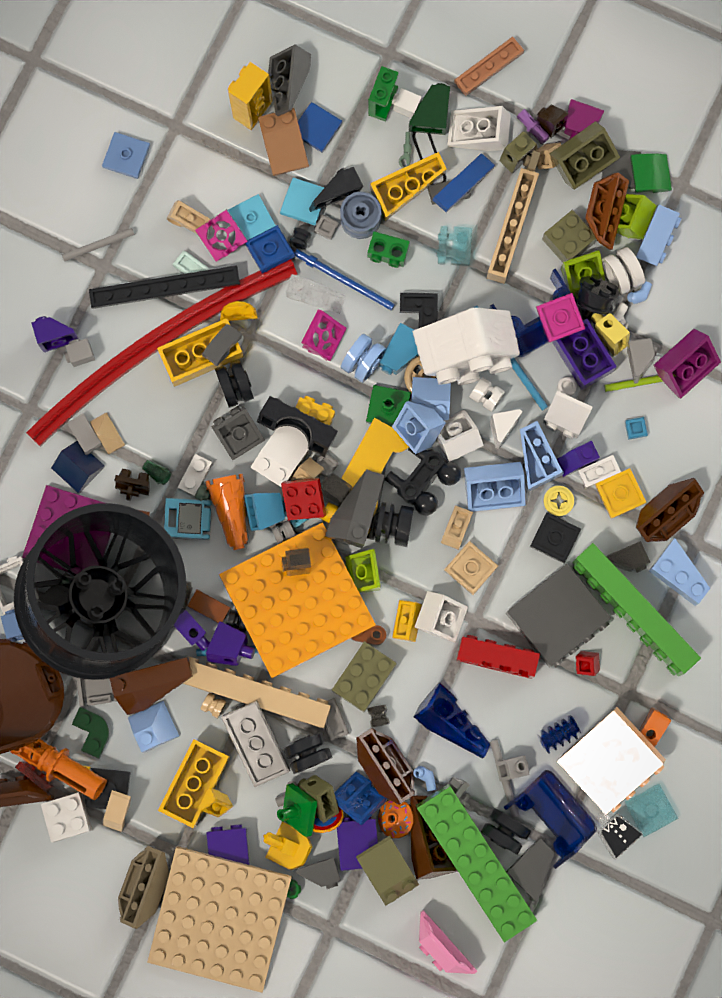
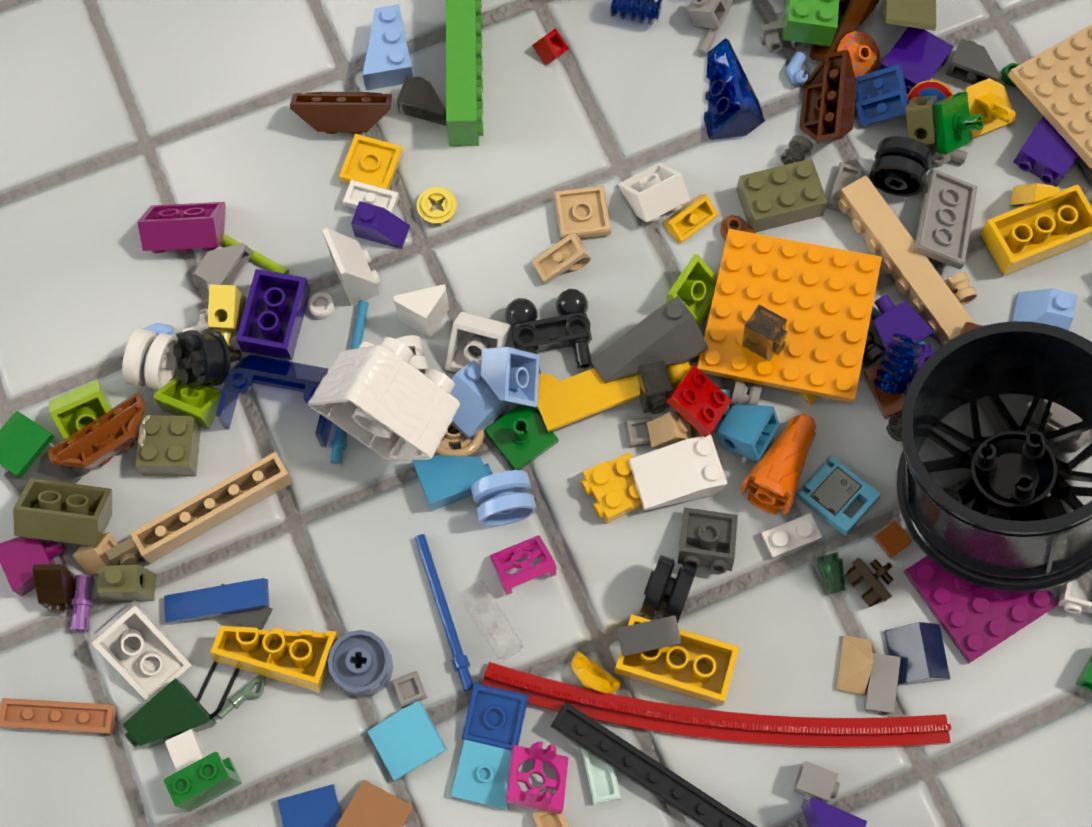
camera: 140 degrees left, 10 degrees down
(202, 493) = (799, 508): sand green plate -> none
(211, 616) = (898, 365): none -> clear blue piece
(278, 414) = (625, 453): black arch -> none
(300, 238) = (450, 698): black wheel -> none
(341, 186) = (356, 717): black slope -> none
(389, 244) = (363, 602): green brick -> none
(393, 524) = (622, 303): black wheel -> none
(423, 303) = (385, 503): black plate -> none
(461, 245) = (286, 537): clear light blue plate -> none
(495, 486) = (485, 267): light blue slope -> none
(498, 657) = (631, 109): red wedge -> none
(539, 458) = (418, 253): light blue wedge -> none
(555, 537) = (473, 175): black plate -> none
(558, 616) = (538, 104): dark grey brick -> none
(560, 317) = (262, 358): dark pink tile -> none
(636, 428) = (295, 212): dark azure tile -> none
(658, 235) = (76, 367): light blue wedge -> none

